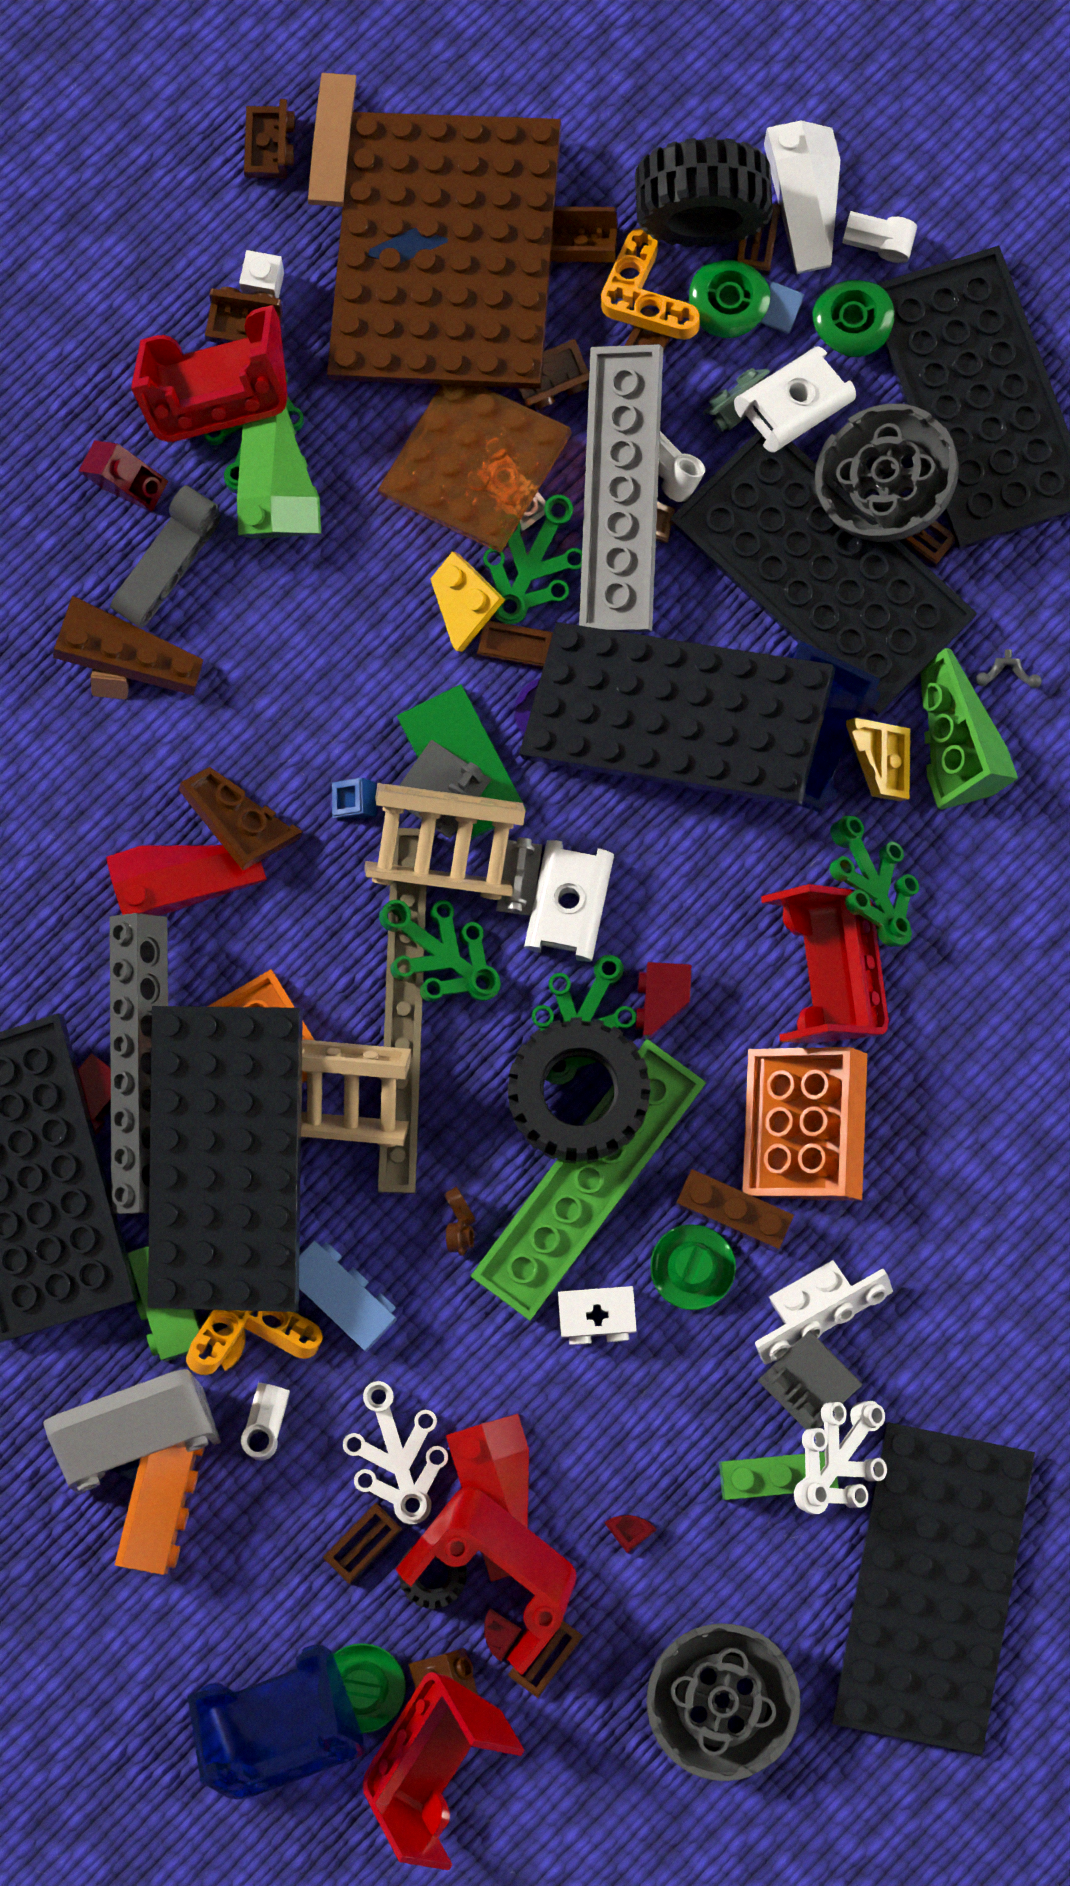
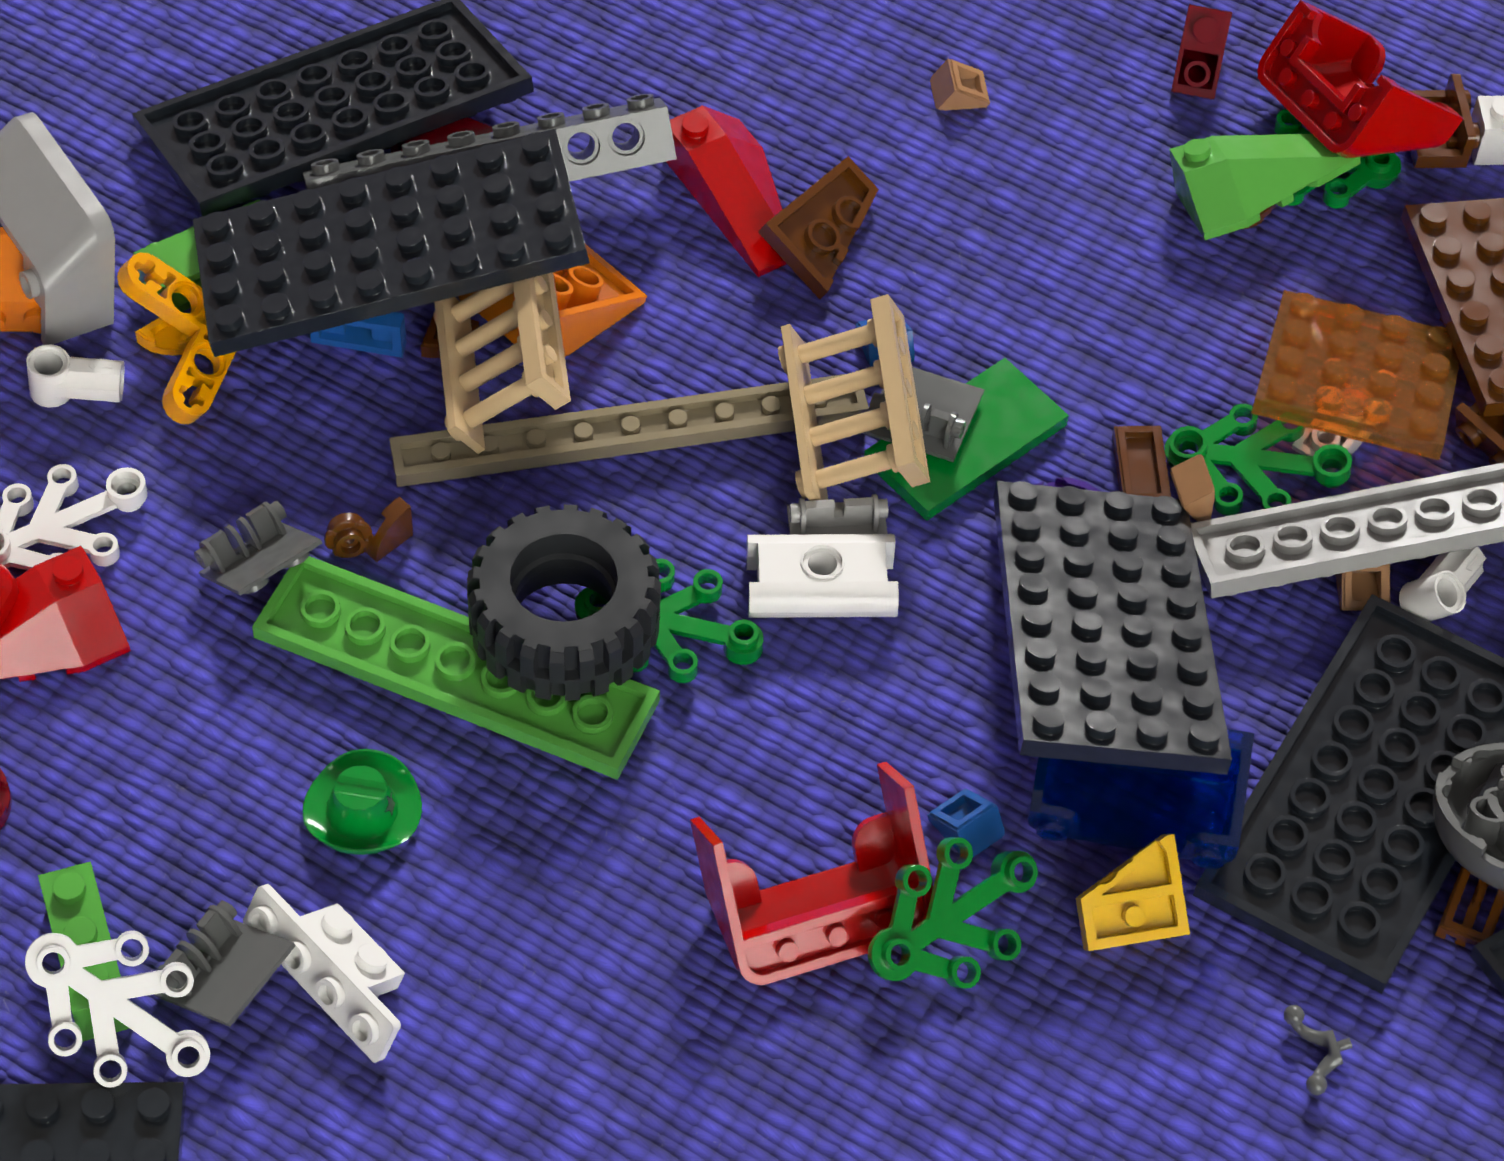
camera: 75 degrees right, 25 degrees down
(117, 647) = (993, 83): reddish brown wing -> none
(168, 557) = (1120, 105): dark grey beam -> none
(343, 1295) = (247, 426): medium blue brick -> none
(444, 953) = (709, 451): green plant -> none
(464, 599) = (1178, 398): yellow wing -> none
(469, 1305) = (266, 550): none -> dark grey hinge
(554, 614) = (1194, 487): none -> medium nougat slope
(615, 1301) = (276, 702): white brick -> none
(666, 996) = (720, 703): dark red slope -> none
(734, 1210) = (446, 833): reddish brown brick -> none
(787, 852) = (969, 818): none -> blue slope
(805, 1123) = (590, 905): orange slope -> none
(964, 744) = (1189, 1013): bright green wedge -> none

